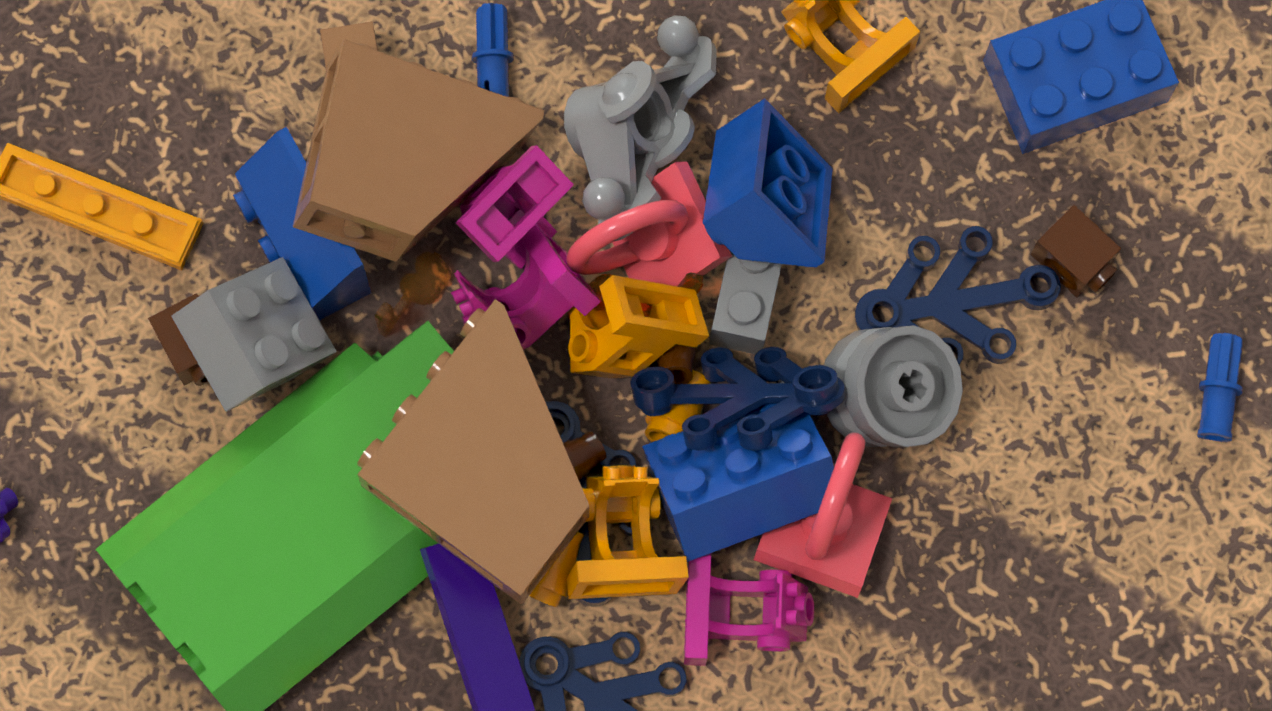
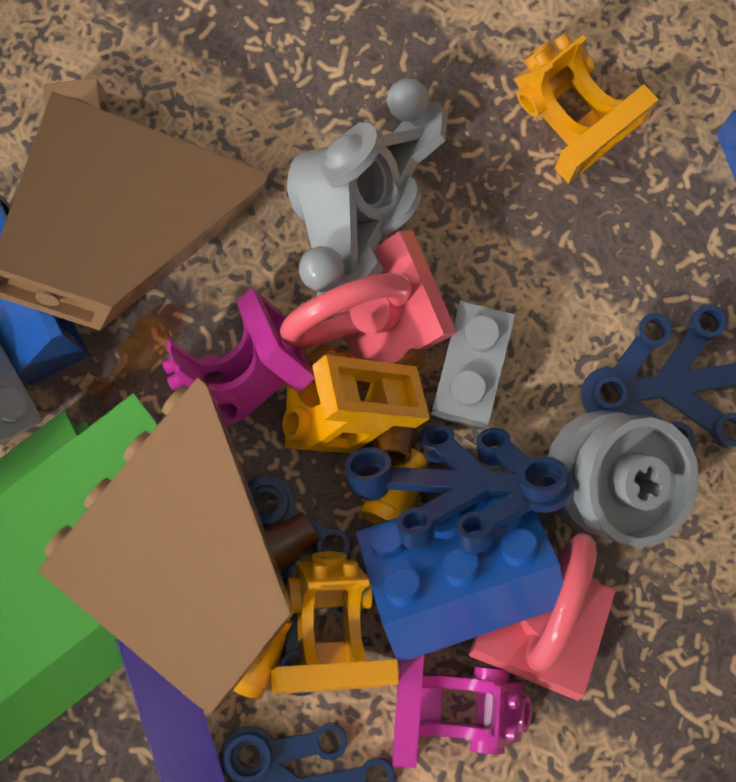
camera: 10 degrees right, 5 degrees up
(492, 49) = (221, 110): blue axle -> none
(504, 209) = (226, 272): dark pink tile -> none
(768, 191) = (496, 266): blue slope -> none

